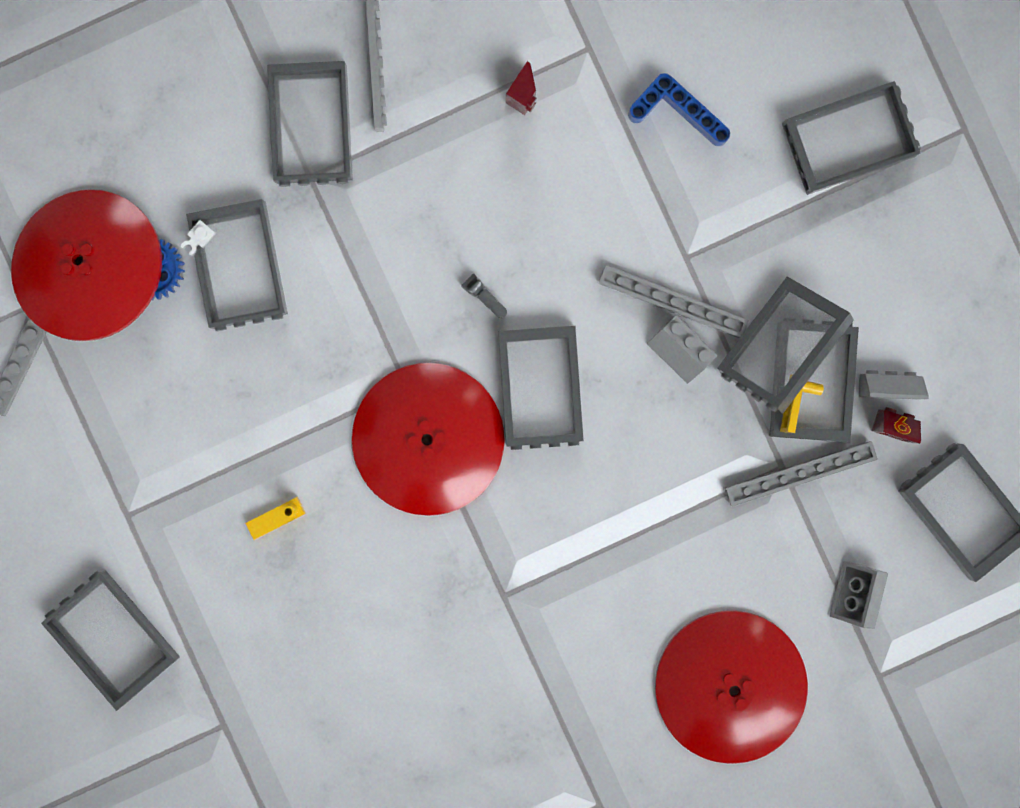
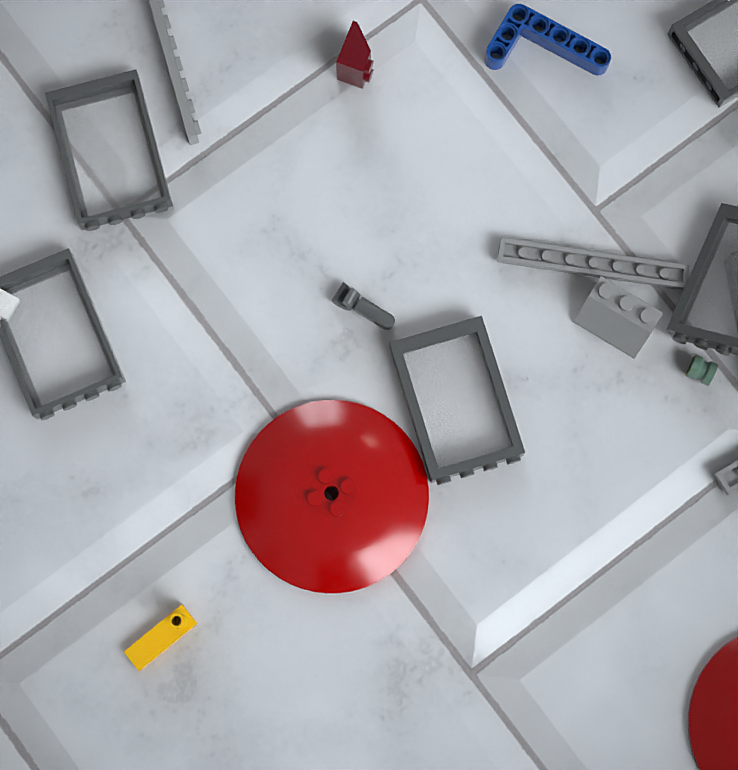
camera: 15 degrees left, 10 degrees down
(736, 405) = (702, 370): none -> sand green wheel

